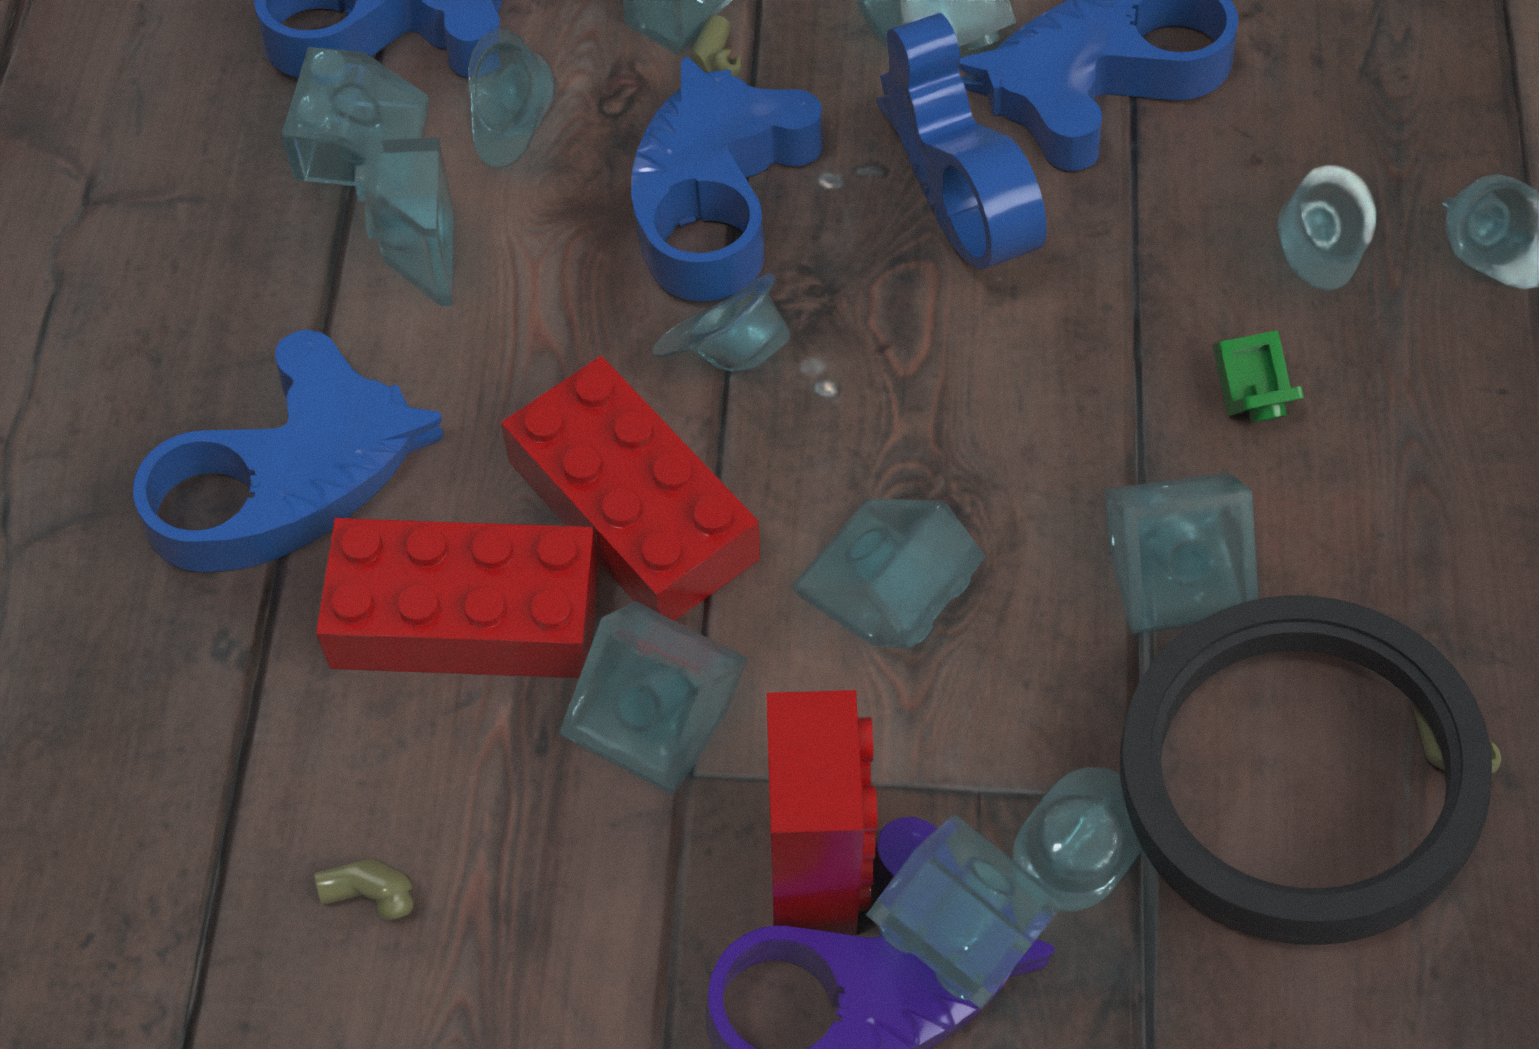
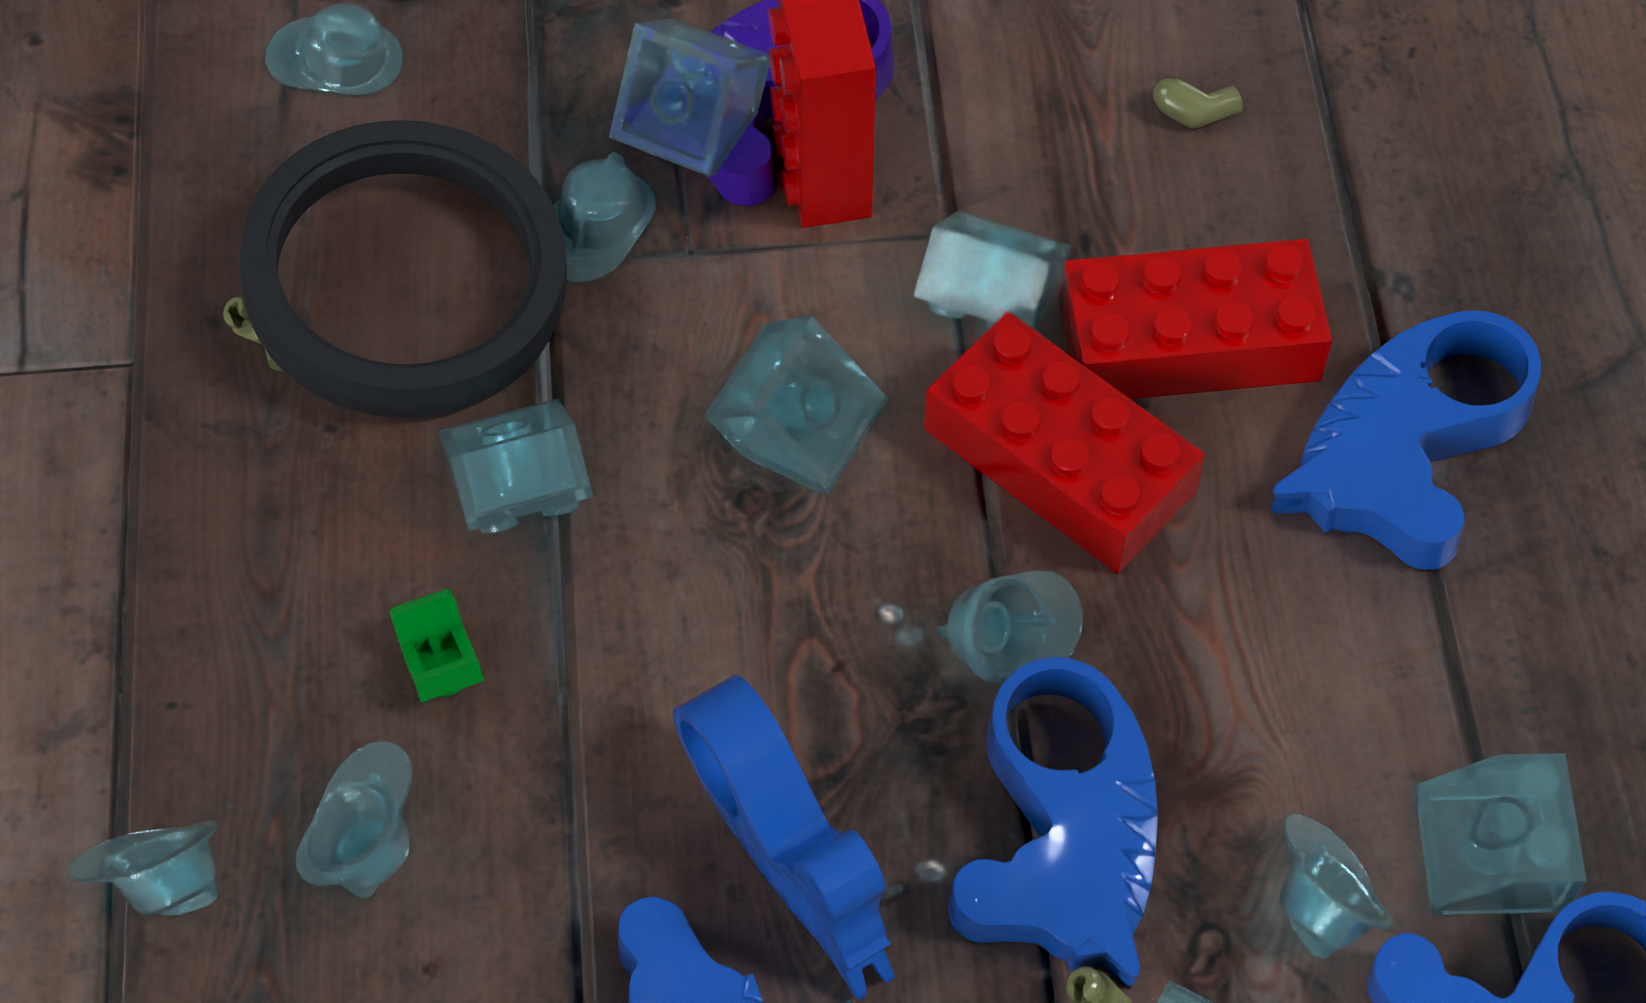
camera: 170 degrees right, 0 degrees up
(410, 211) = (1380, 683): clear light blue slope -> none

